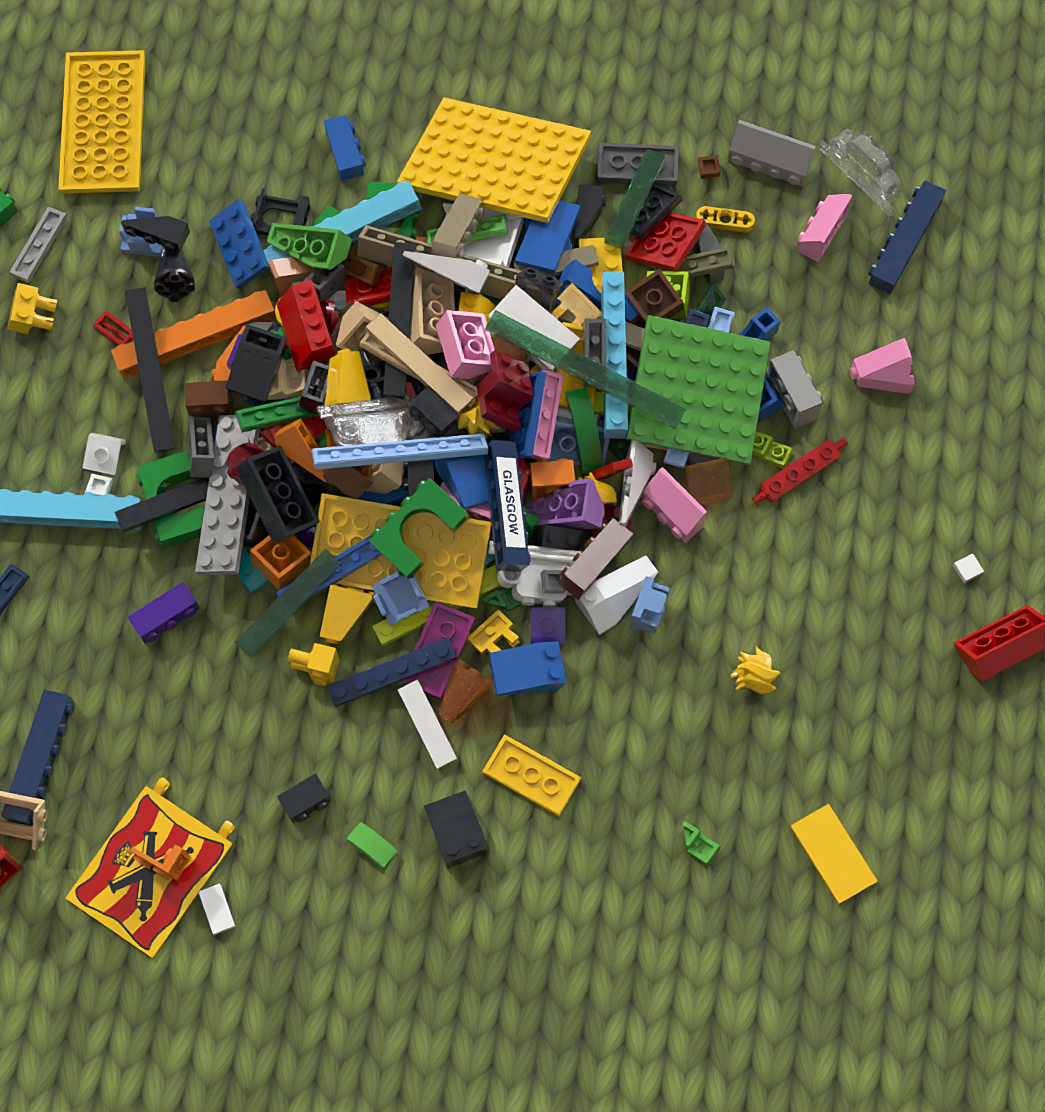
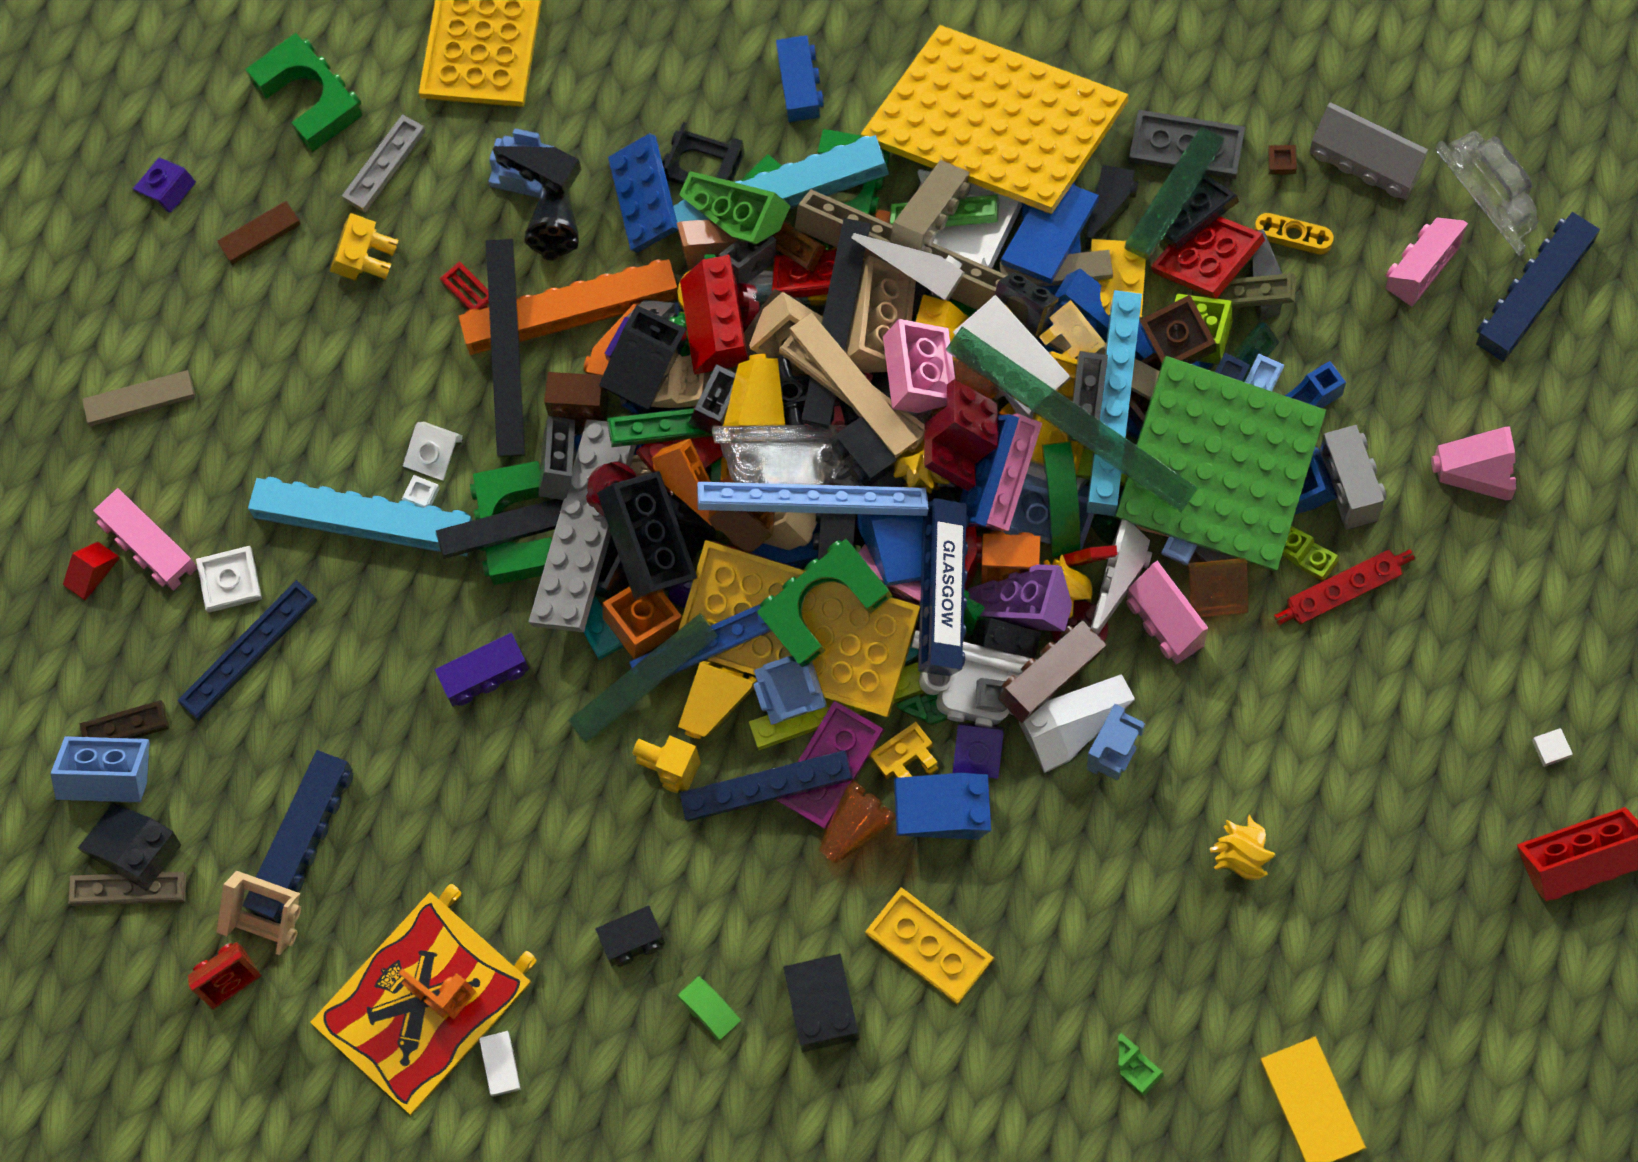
camera: 15 degrees right, 0 degrees up
(427, 724) = (802, 860): white tile -> none

